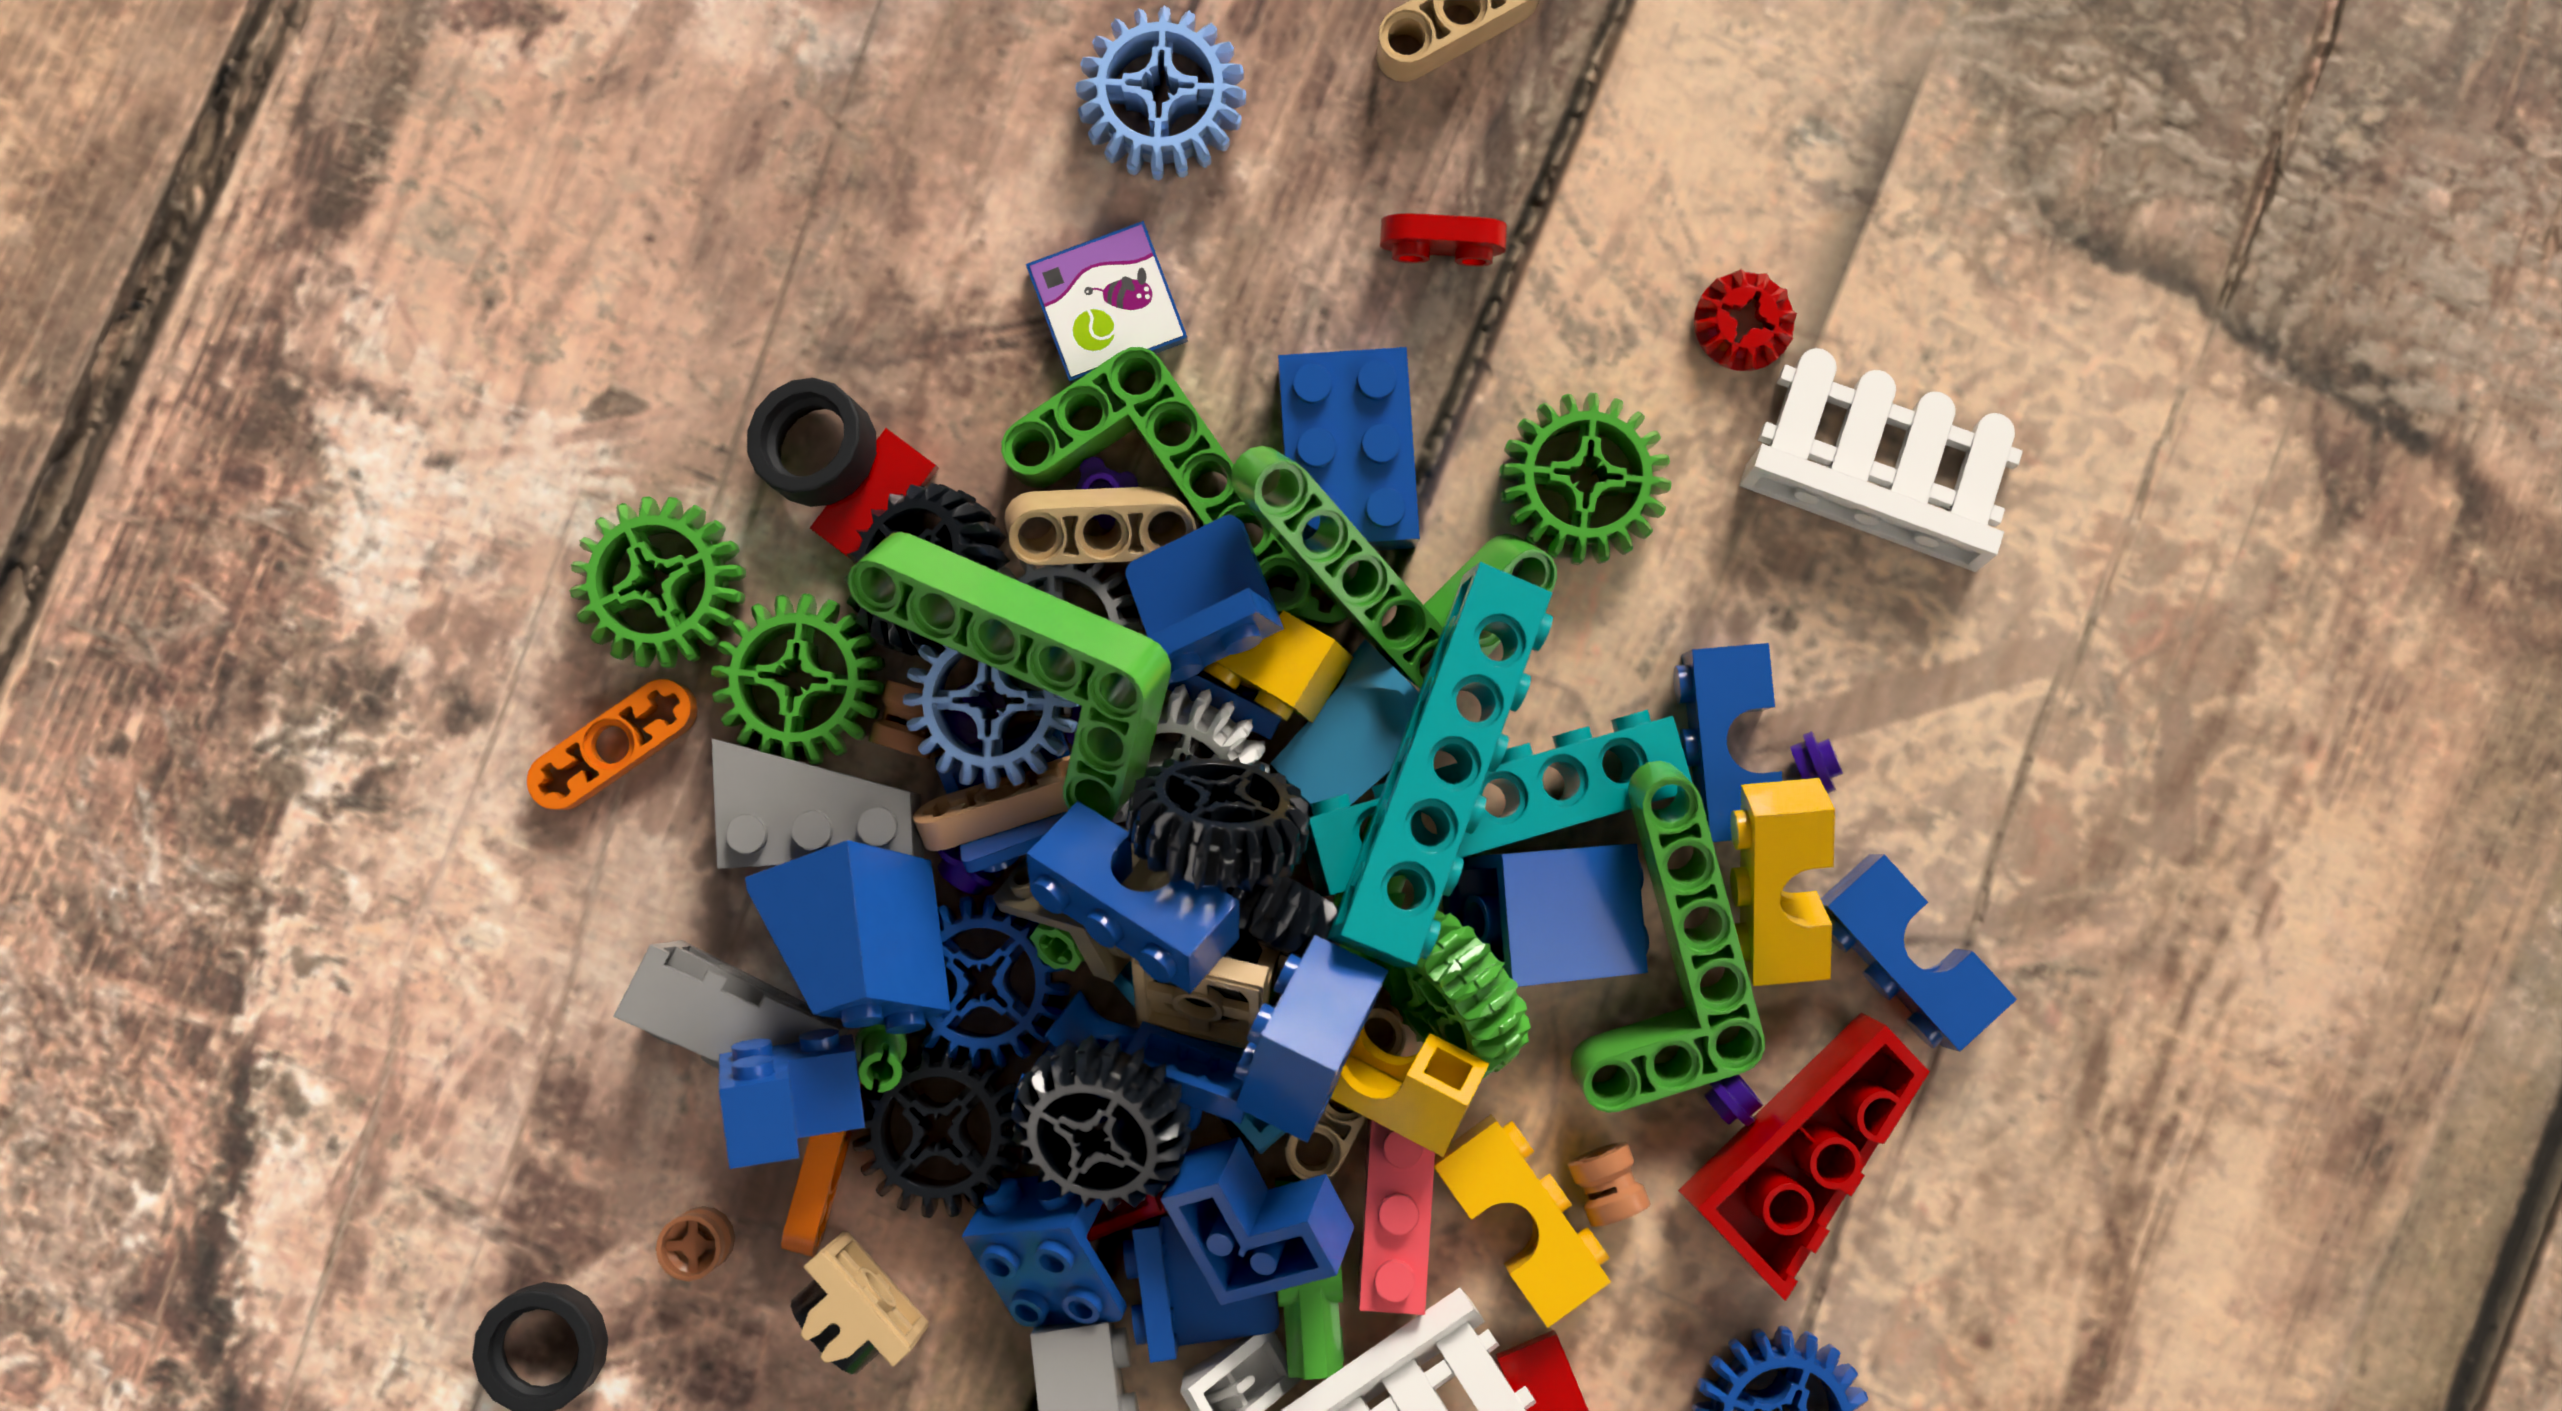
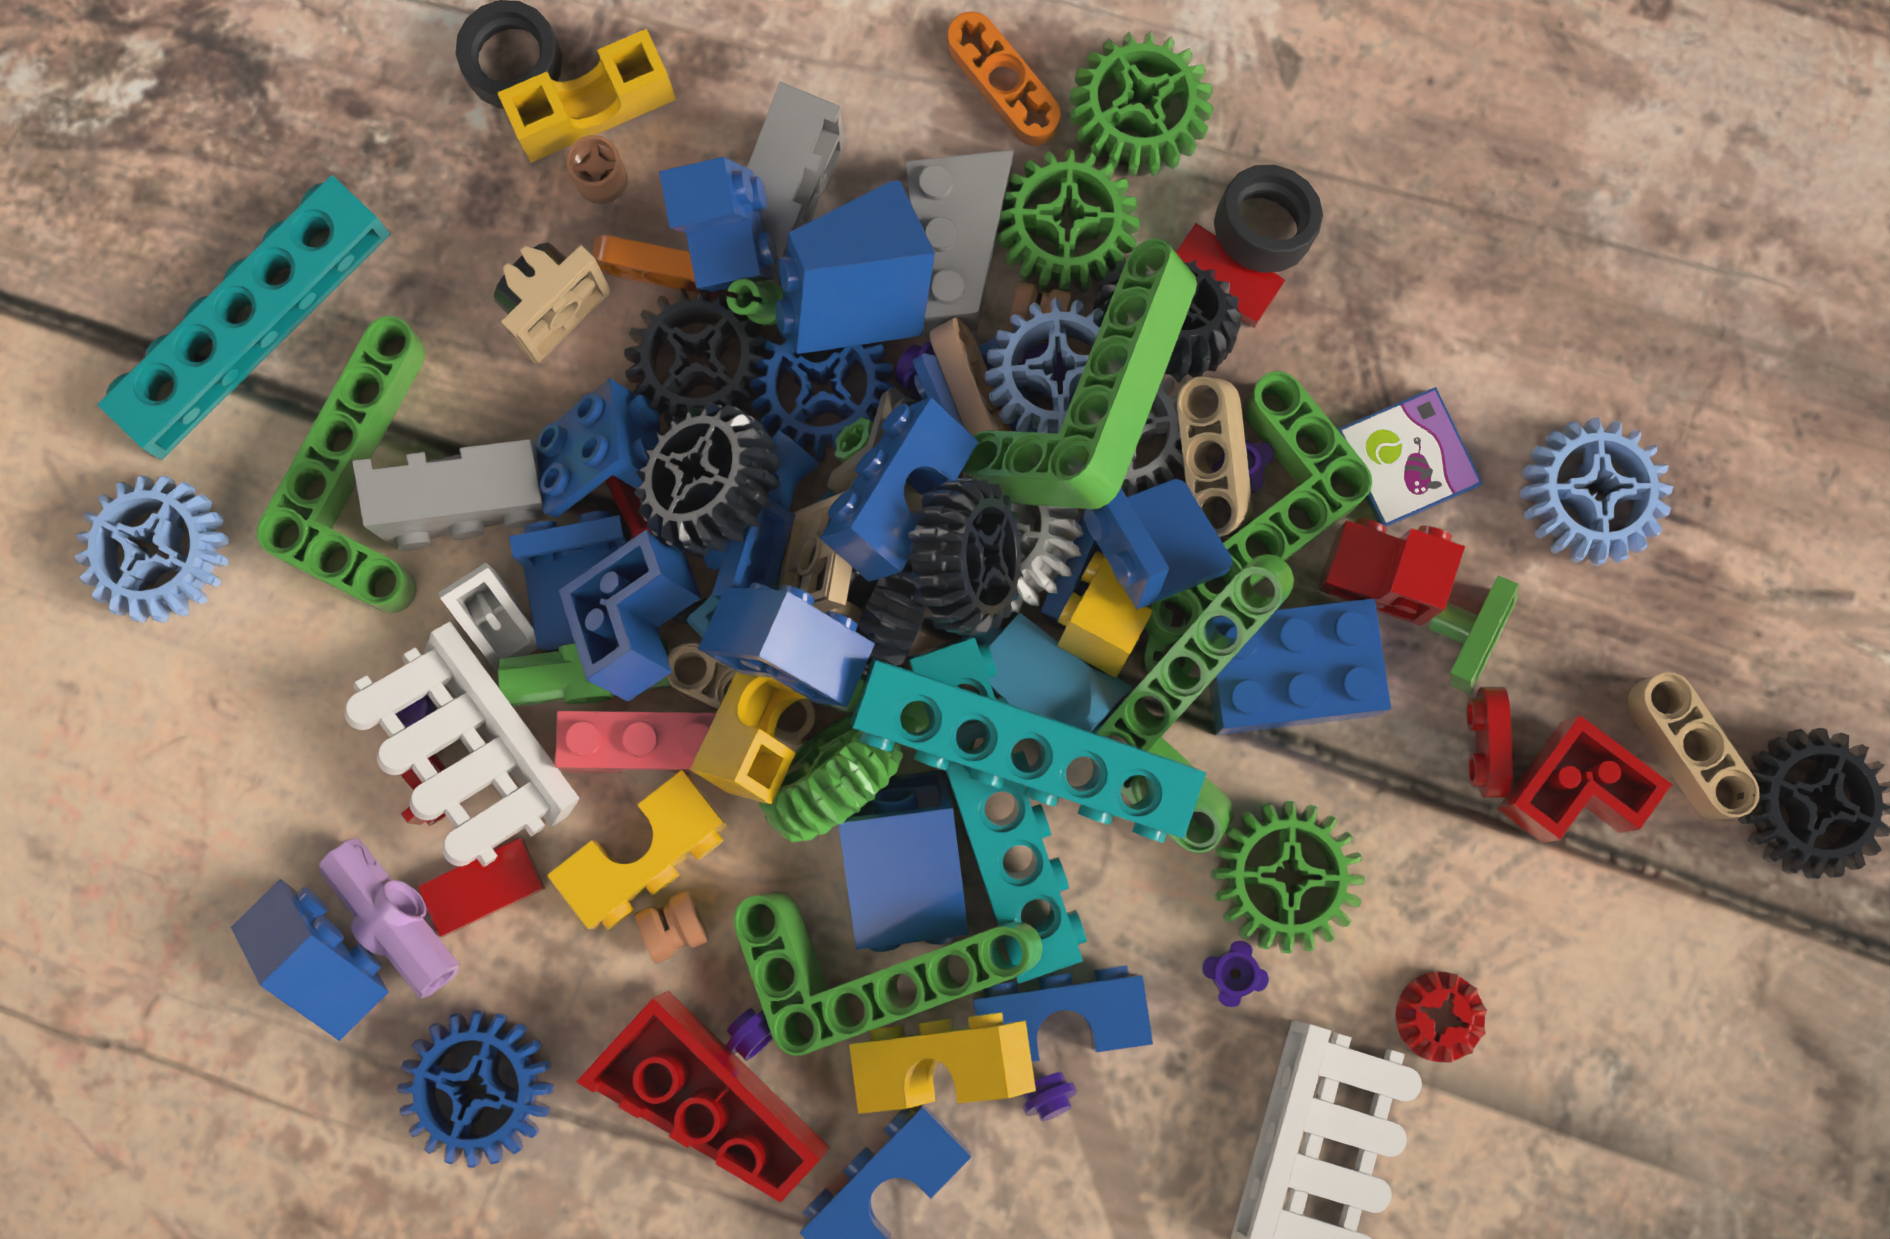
camera: 90 degrees right, 5 degrees down
(622, 1287) = (618, 89): none -> yellow arch
(1247, 327) = (1403, 574): none -> red brick
(1315, 245) = (1476, 631): none -> bright green tile
(1484, 144) = (1582, 770): none -> red brick
(1705, 545) = (1250, 980): none -> dark purple plate

